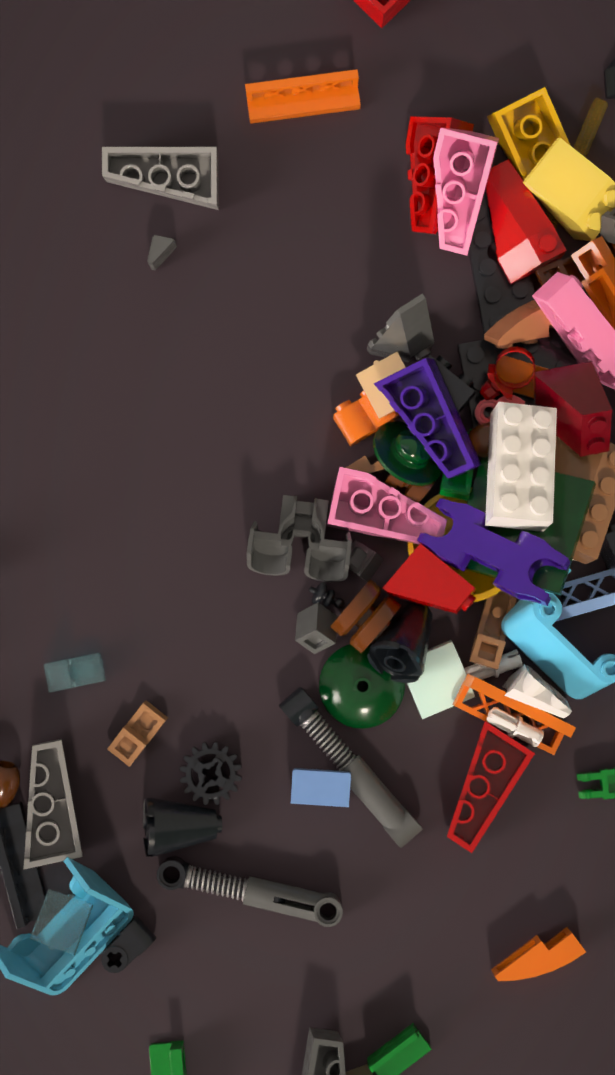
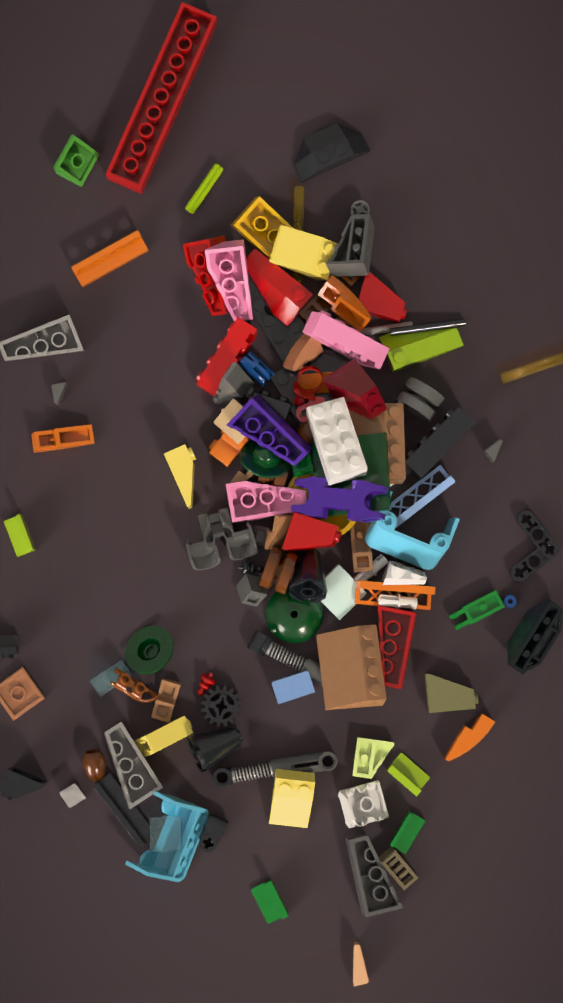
camera: 25 degrees left, 0 degrees up
(28, 425) = (19, 535): none -> lime panel
(104, 701) = (138, 687): none -> dark orange piece
(113, 784) = (164, 736): none -> light yellow slope
(140, 316) = (62, 438): none -> orange slope
(141, 655) = (149, 650): none -> dark green hat
(202, 731) = (205, 684): none -> red hair
(258, 942) = (292, 798): none -> light yellow slope
(288, 423) = (182, 467): none -> light yellow slope
(353, 991) = (363, 804): none -> white slope
(383, 567) = (278, 534): none -> medium nougat slope
(389, 926) = (369, 756): none -> yellowish green wing
(413, 795) = (351, 668): none -> medium nougat slope
(432, 973) = (408, 774): none -> lime panel
(433, 277) = (230, 350): none -> red wedge
(445, 326) = (256, 368): none -> blue arm
(469, 53) = (204, 188): none -> lime axle
(532, 887) = (447, 695): none -> olive slope

